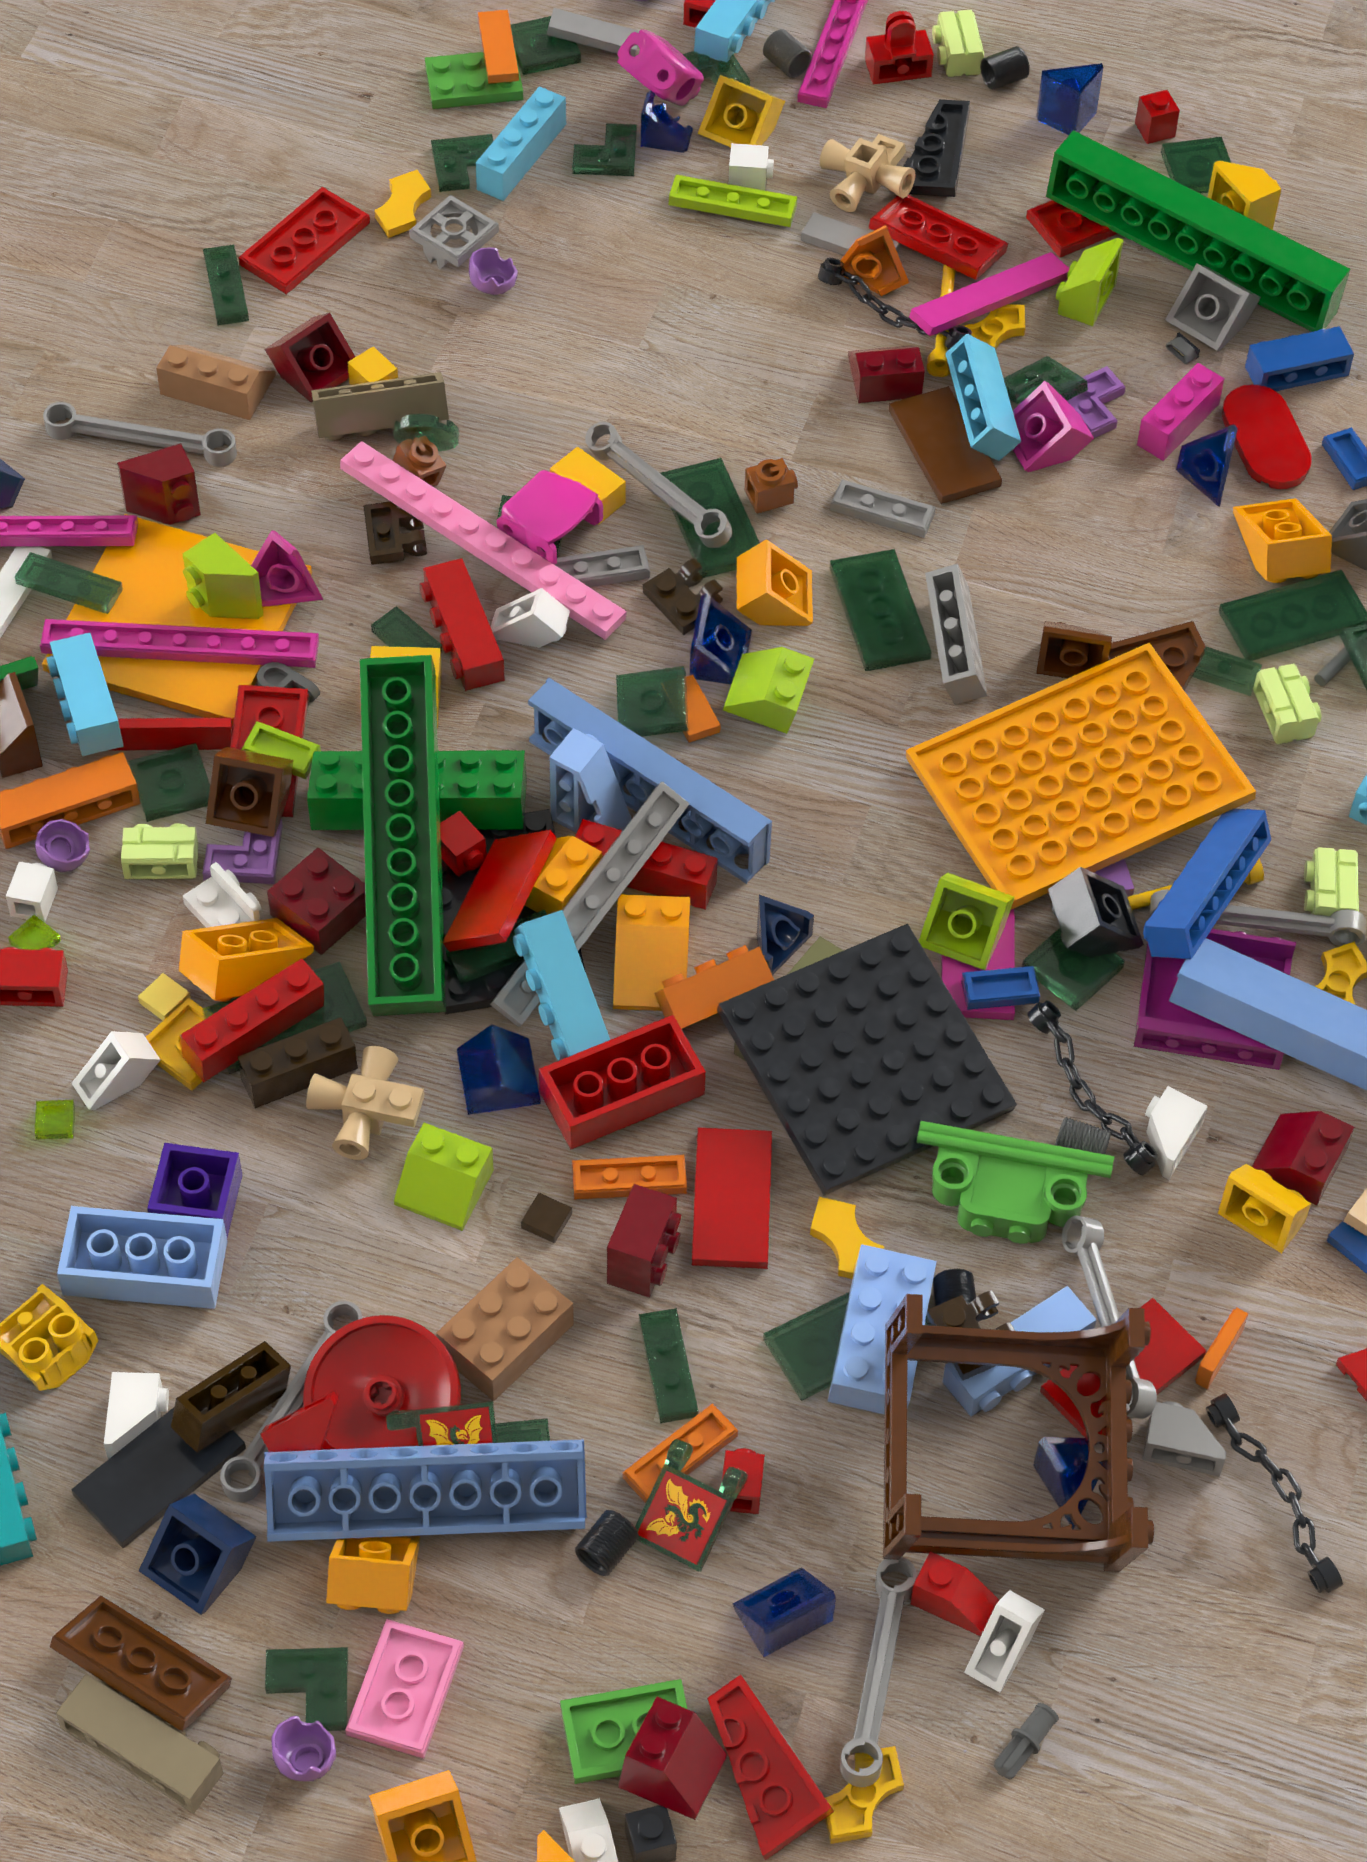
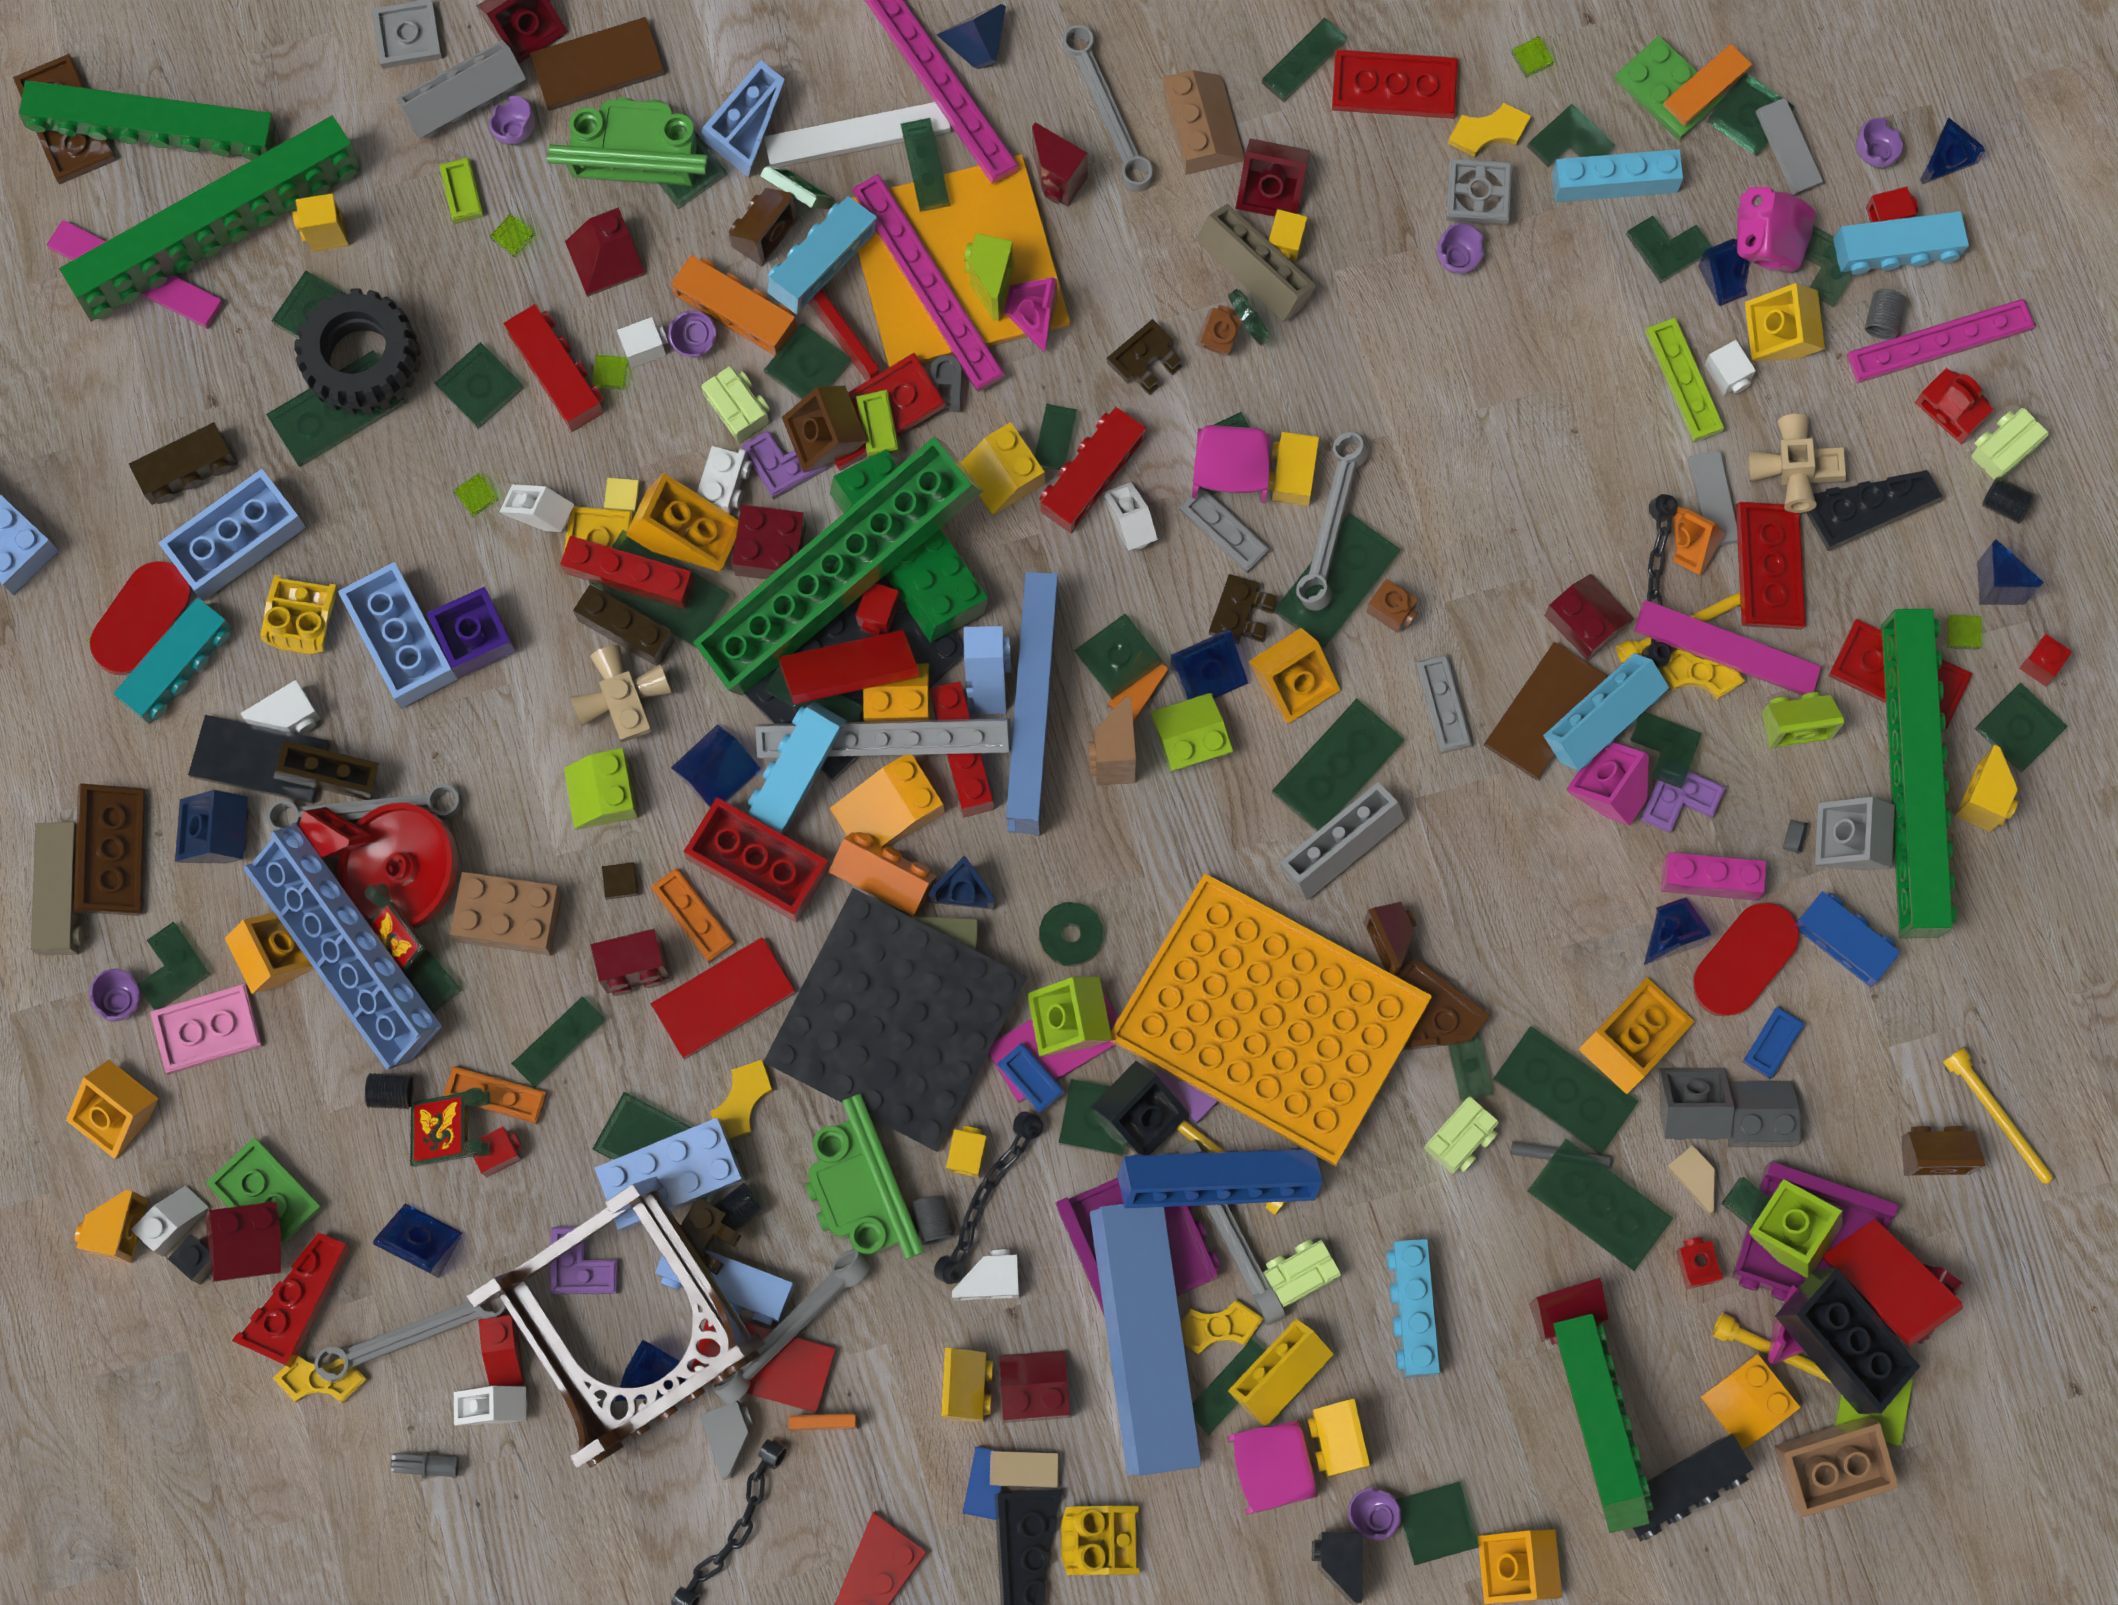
camera: 60 degrees right, 20 degrees up
(366, 144) = (1532, 57): none -> clear neon green tile
(481, 538) = (1178, 429): bright pink plate -> none
(745, 732) = (1113, 749): none -> medium nougat slope
(882, 904) = (1070, 953): none -> clear green tile
(927, 1476) = (579, 1276): none -> medium lavender tile
(1035, 1079) = (966, 1152): none -> yellow brick

